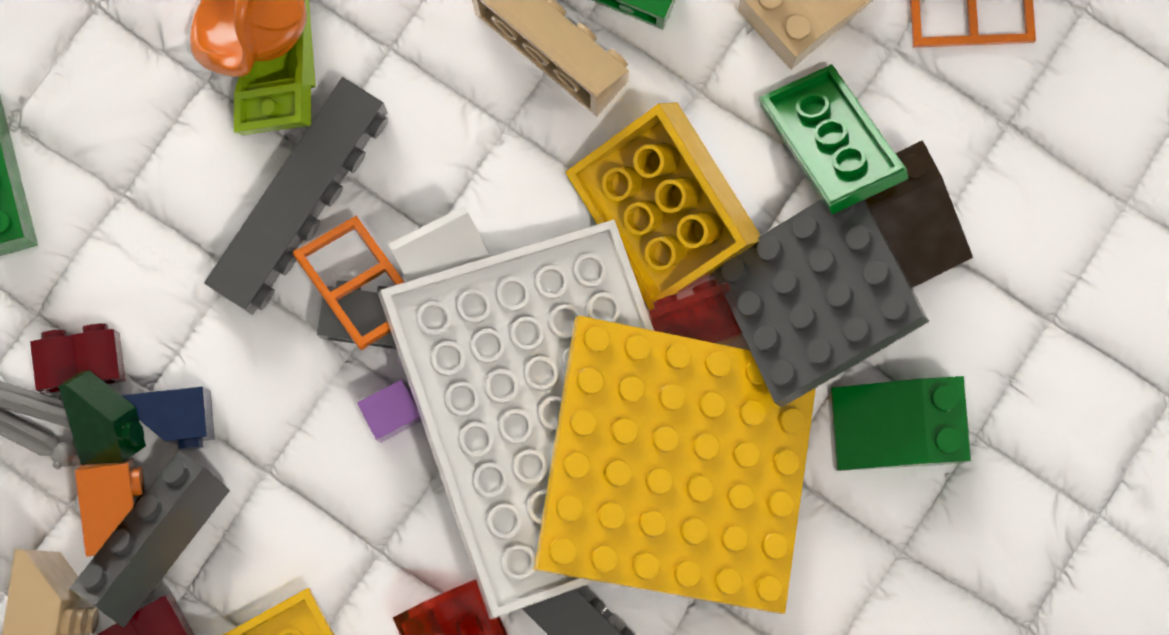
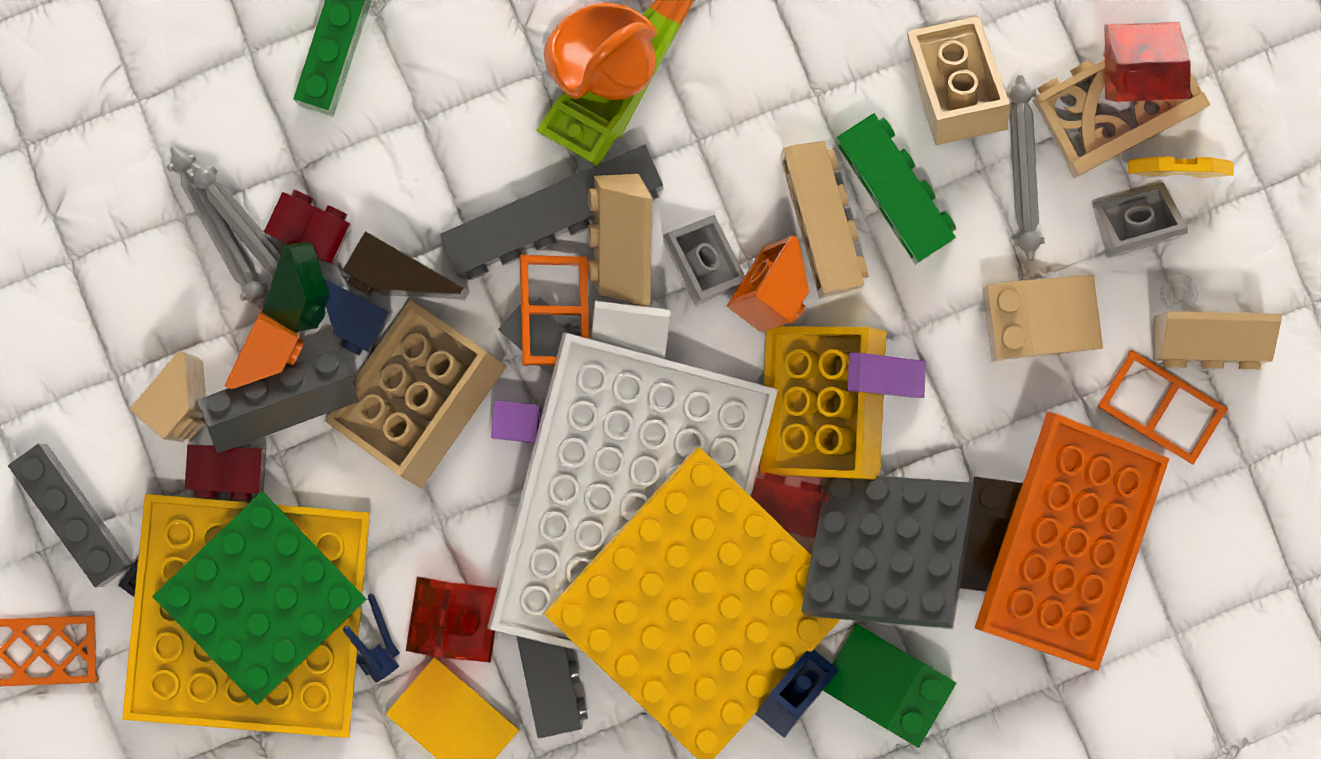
camera: 30 degrees right, 5 degrees up
(185, 346) = (393, 273): none -> dark brown slope
(281, 446) = (417, 394): none -> tan slope
(375, 173) = (621, 238): none -> tan slope
(466, 149) = (704, 259): none -> light grey slope
(547, 127) = (772, 287): none -> orange slope
(704, 137) = (886, 375): none -> medium lavender tile
(821, 487) = (796, 692): none -> dark blue slope
(833, 139) = (982, 439): tile -> none
(978, 177) = (1072, 541): none -> orange plate

